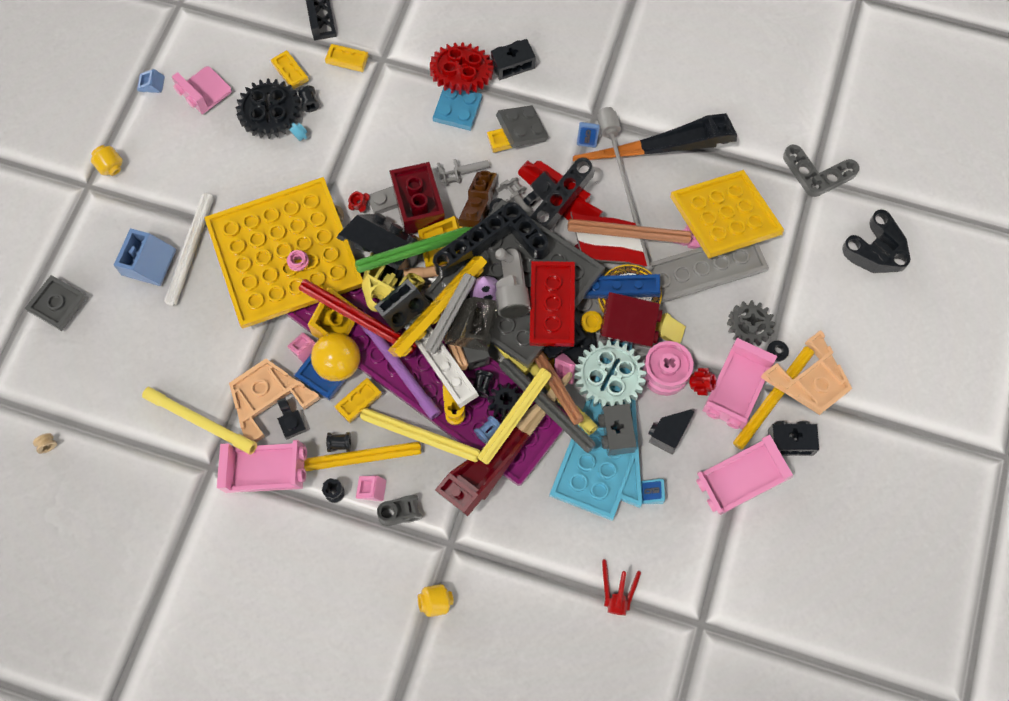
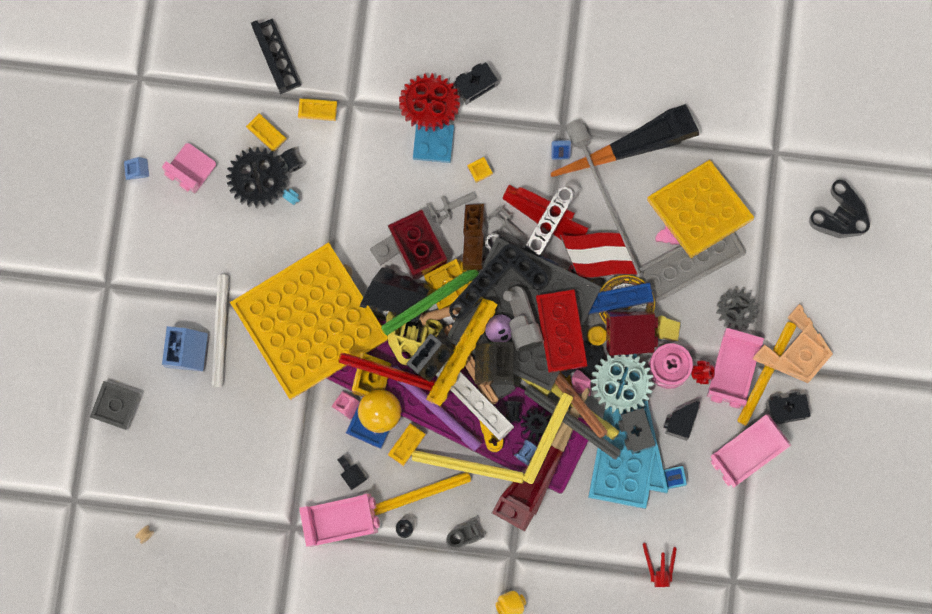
camera: 10 degrees left, 10 degrees up
(106, 160) = (120, 259): yellow head -> none
(236, 440) = (235, 477): light yellow piece -> none
(262, 388) = (319, 450): light nougat wing -> none
(295, 255) = (326, 323): bright pink plate -> none
(338, 442) = (398, 485): black bush -> none
(354, 198) = (359, 251): red plate -> none
(371, 488) = (434, 519): bright pink slope -> none
(450, 313) = (474, 358): light grey axle -> none
(522, 126) = (498, 152): dark grey plate -> none
(541, 188) = (530, 214): black plate -> none
(630, 231) = (615, 244): nougat axle -> none
(781, 345) = (759, 333): black plate -> none
(818, 178) = (779, 154): dark grey beam -> none

